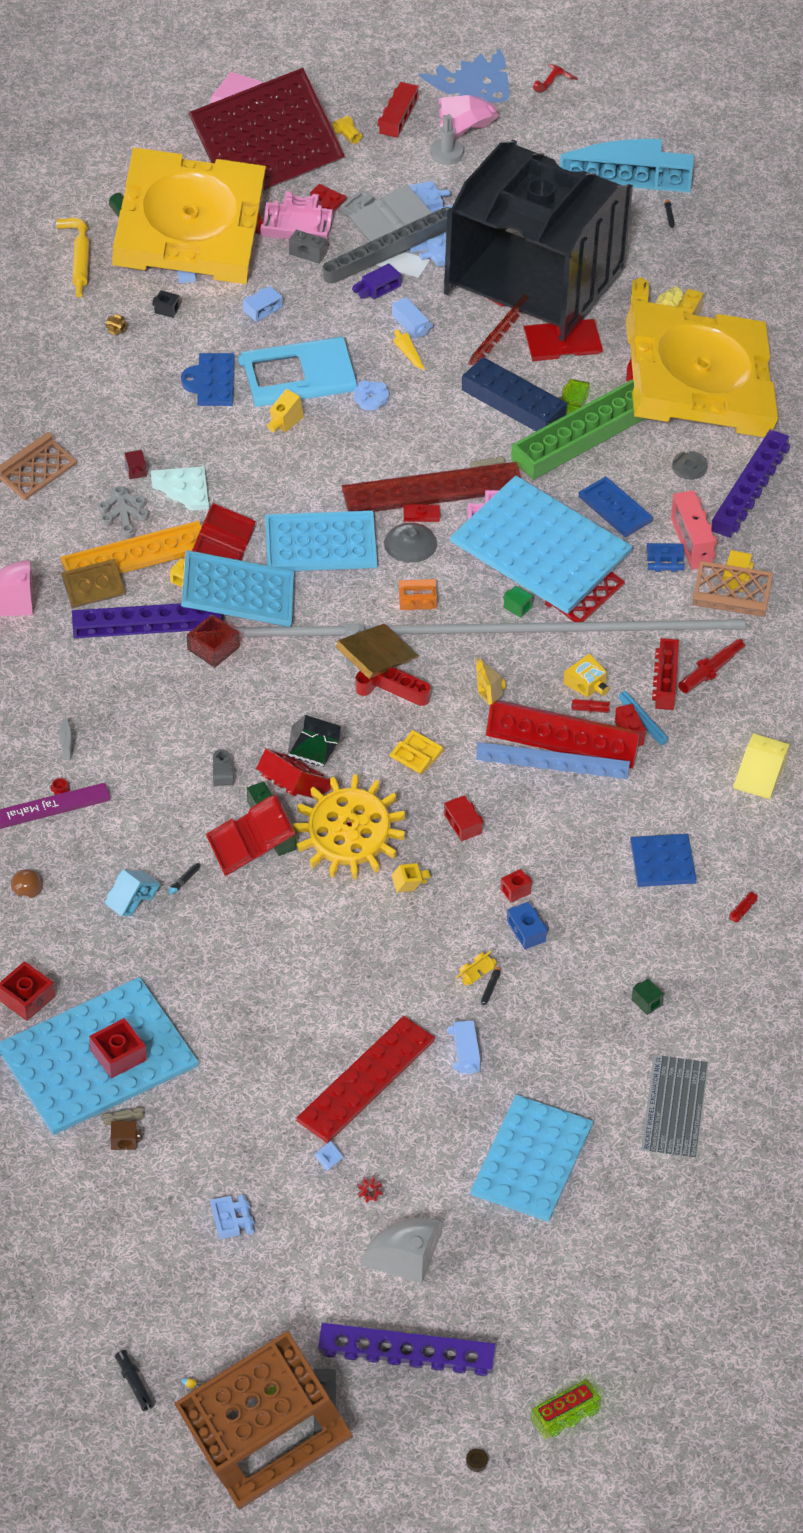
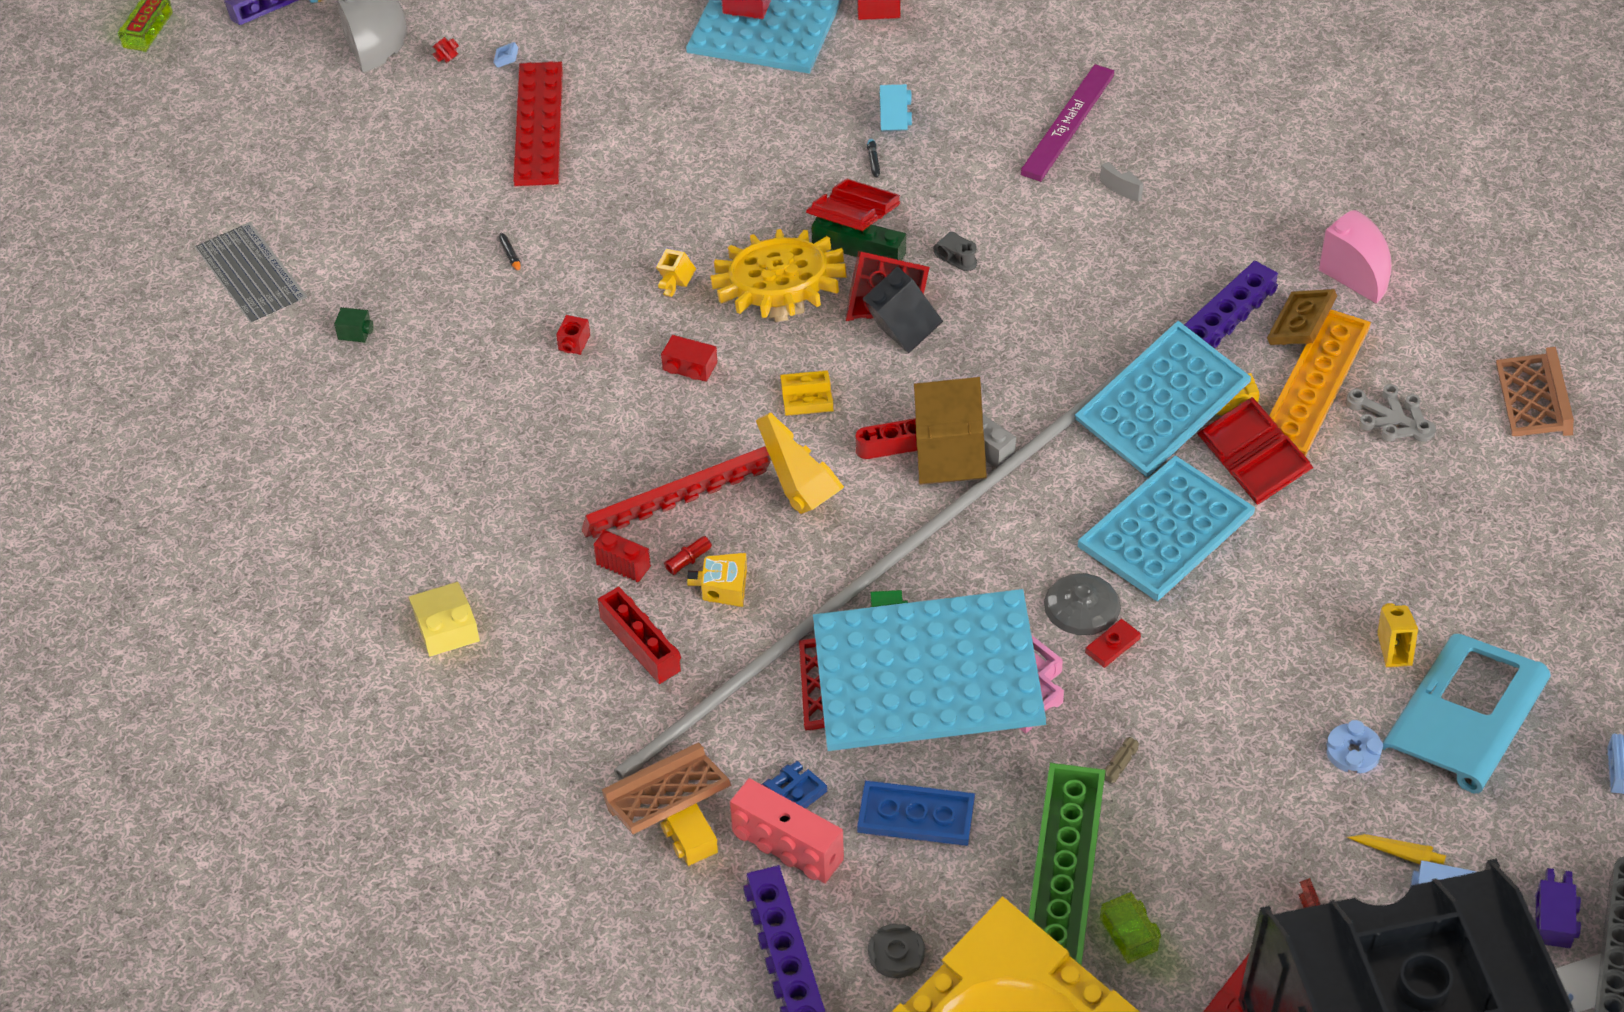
camera: 140 degrees right, 0 degrees up
(26, 883) = (991, 69): dark orange hair -> none
(59, 786) = (1072, 149): red plate -> none
(135, 464) = (1451, 464): dark red brick -> none
(183, 485) = (1378, 487): light aqua plate -> none
(211, 379) = (1536, 630): blue plate -> none
(213, 640) = (1117, 341): clear red brick -> none
(417, 594) = (993, 537): orange window -> none
(427, 488) = (1136, 676): clear red plate -> none
(465, 1046) = (477, 187): light blue brick -> none
(470, 972) = (537, 251): yellow hinge -> none
(512, 395) = (1199, 866): dark blue brick -> none
(527, 925) = (526, 309): blue brick -> none
(532, 1158) = (338, 157): medium azure plate -> none
(552, 760) = (665, 467): medium blue plate -> none
(649, 724) = (628, 585): dark azure axle -> none
(662, 860) = (459, 459): blue plate -> none
(709, 666) = (603, 680): red piece -> none
(742, 908) = (336, 468): red axle -> none

